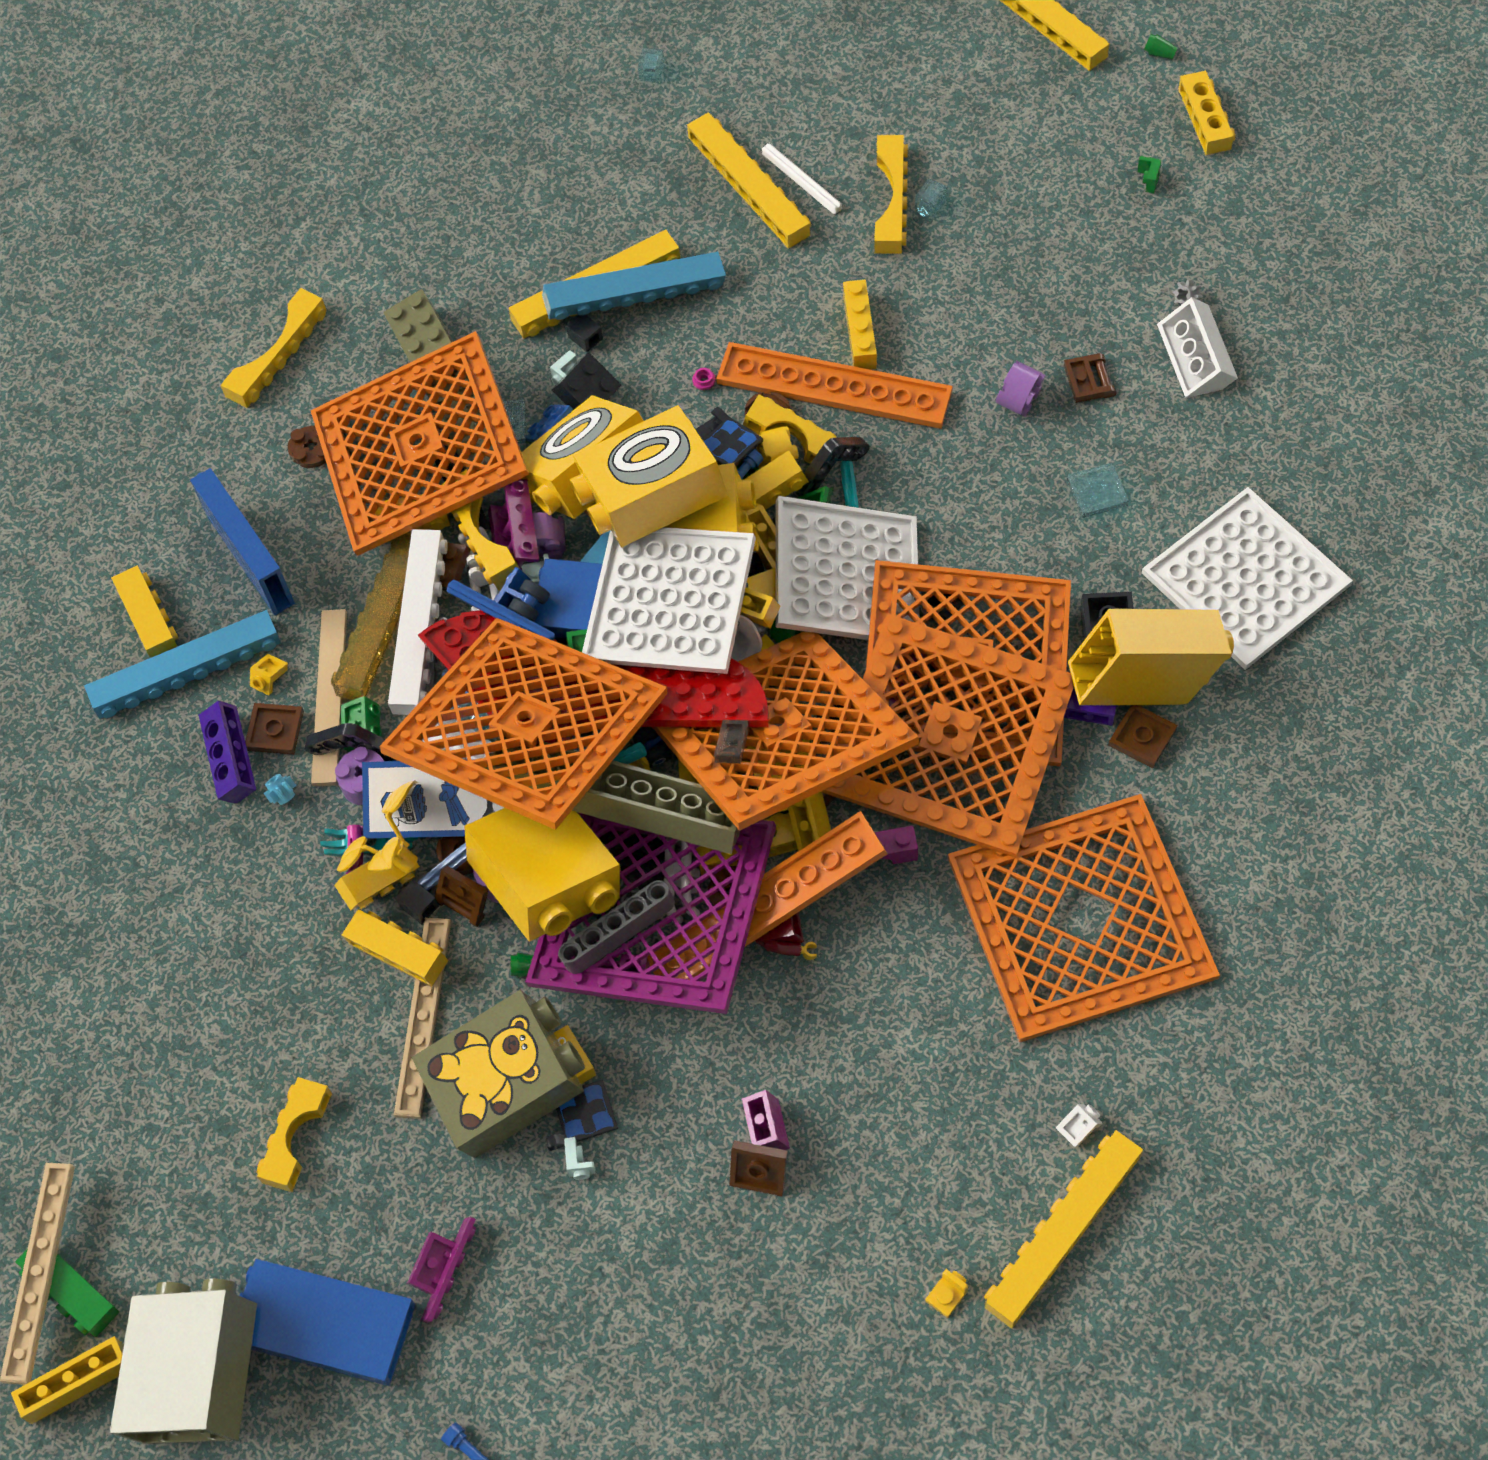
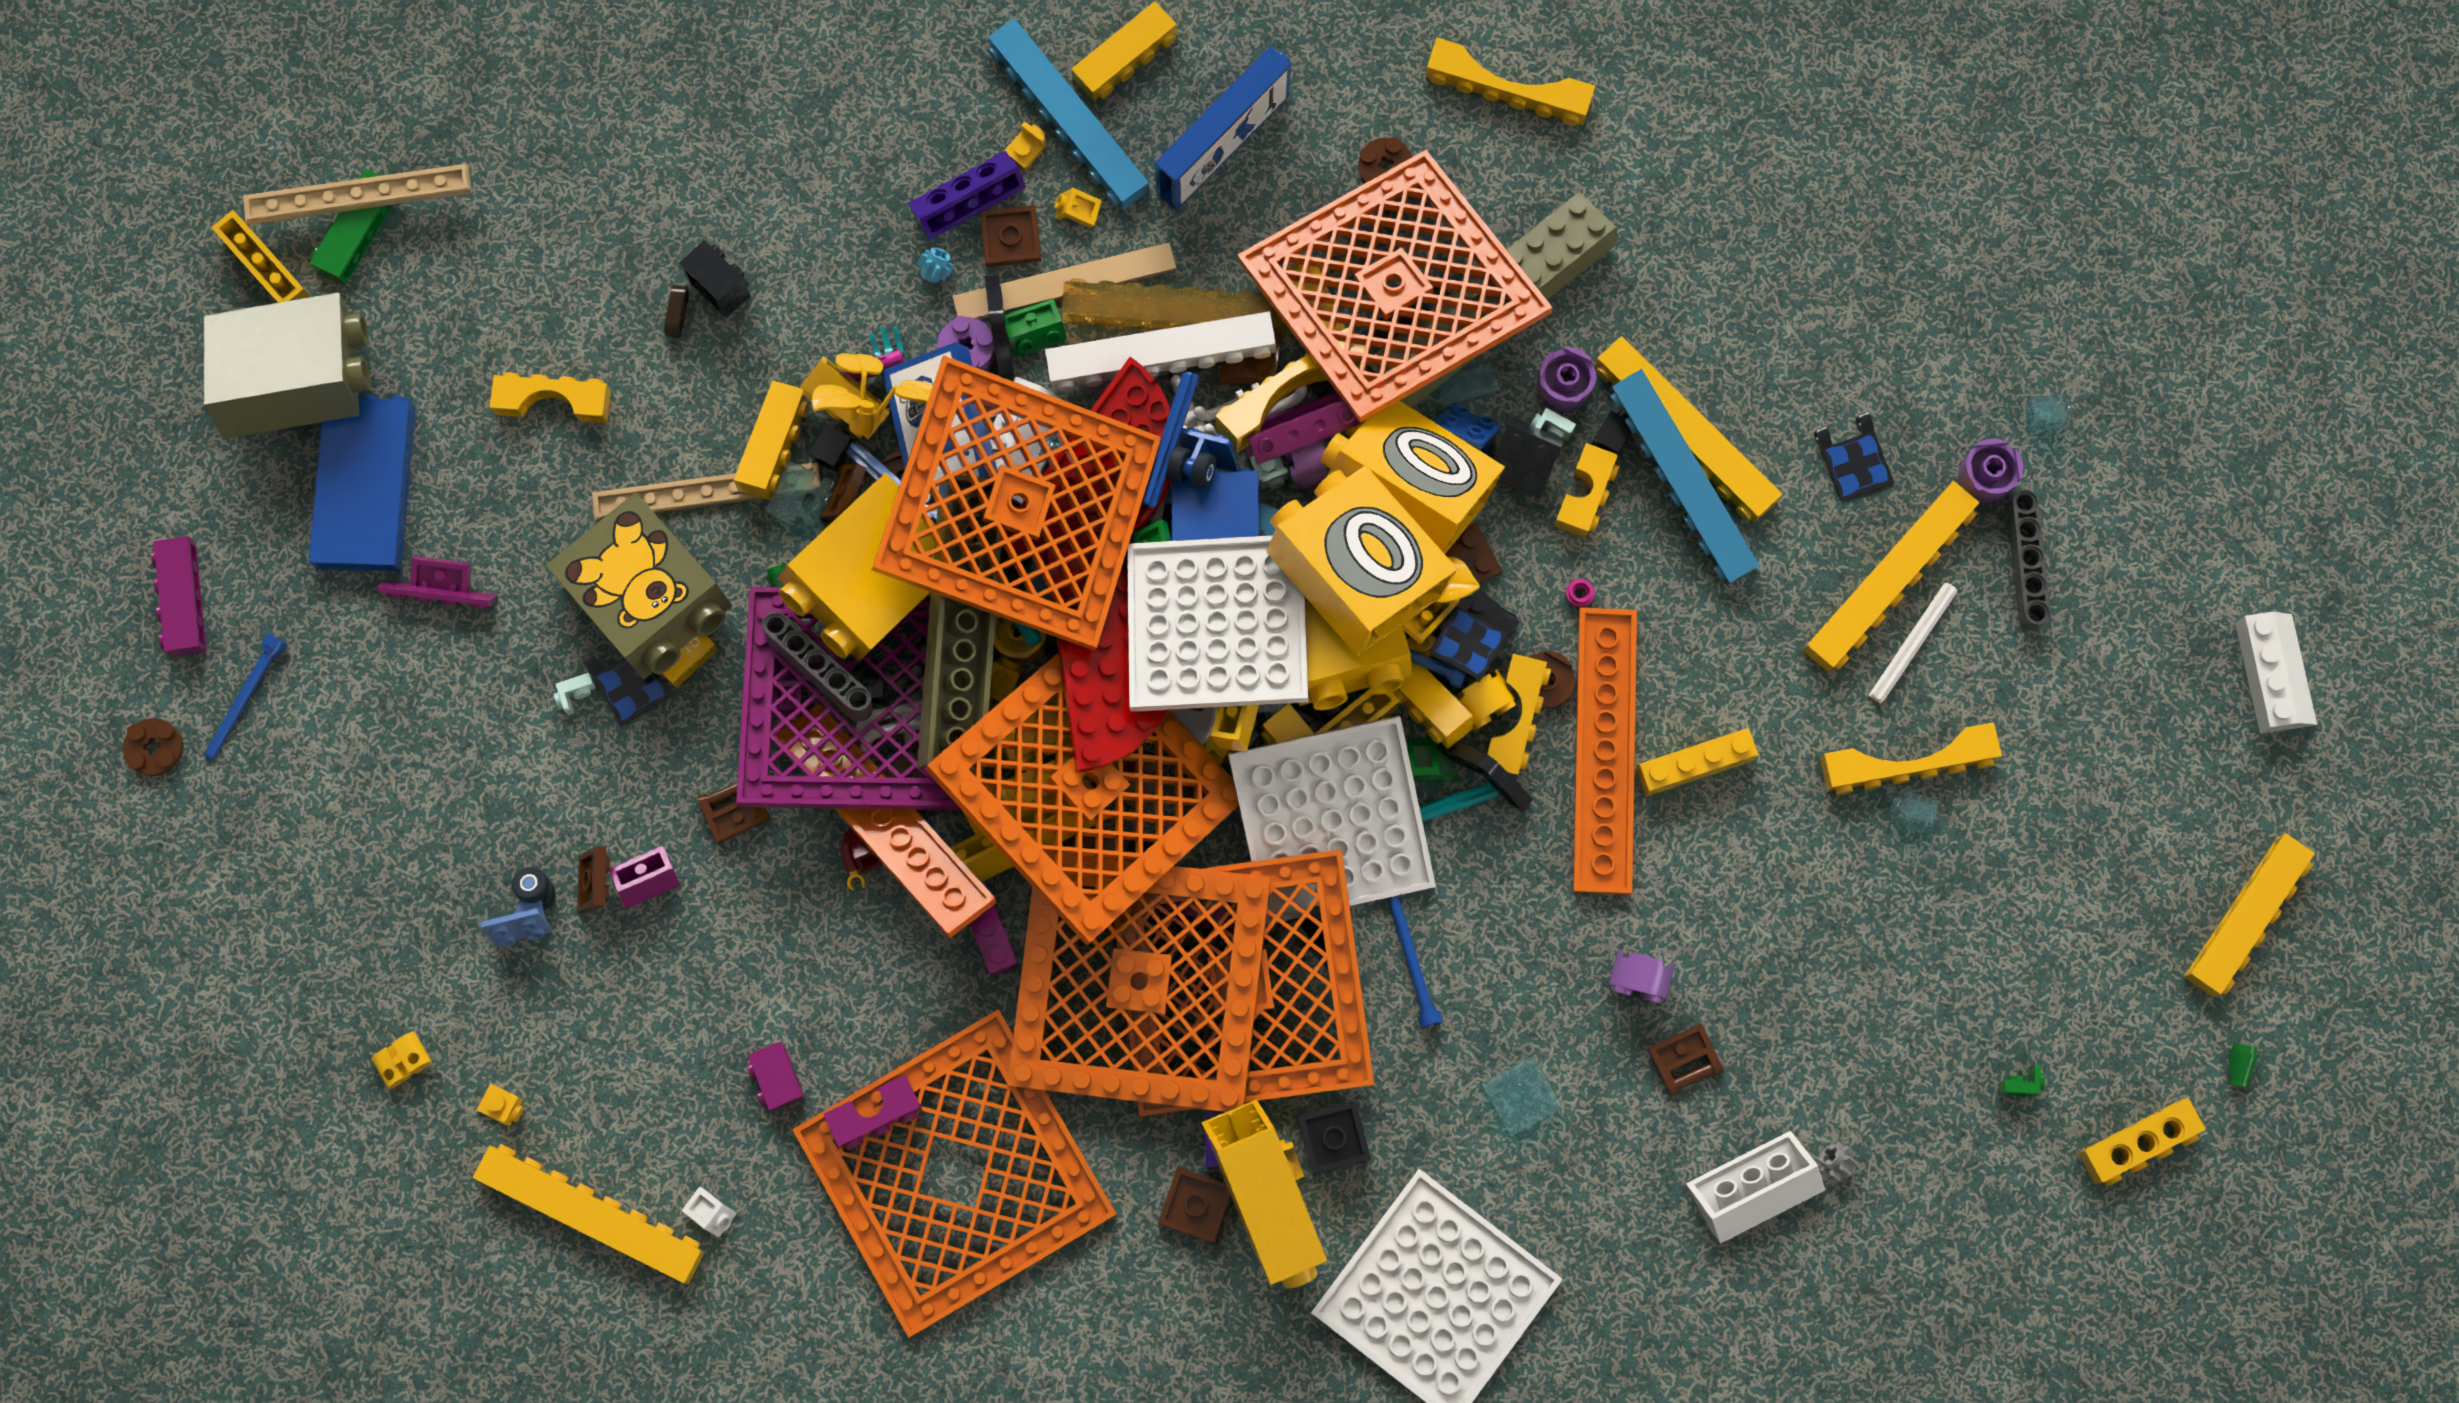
camera: 70 degrees right, 15 degrees up
(195, 699) = (1027, 145): none -> yellow bracket
(231, 965) = (715, 278): none -> black brick
(248, 1010) = (676, 311): none -> dark brown beam
(443, 933) = (791, 494): none -> clear light blue plate
(530, 352) = (1566, 395): none -> medium lavender brick
(609, 347) = (1596, 468): none -> yellow arch
(650, 187) = (1855, 463): none -> black flag
(684, 102) = (1999, 459): none -> medium lavender brick
(728, 1040) = (731, 819): none -> reddish brown plate
(731, 741) = (1042, 735): clear smoke plate -> none
(759, 96) = (2034, 548): none -> dark grey beam
(780, 1230) = (528, 920): none -> medium blue plate
(887, 1378) = (401, 1060): none -> yellow piece
(970, 1045) = (775, 1077): none -> magenta brick
(1016, 941) = (898, 1105): none -> magenta arch
(1018, 541) = (1428, 1013): none -> blue piece

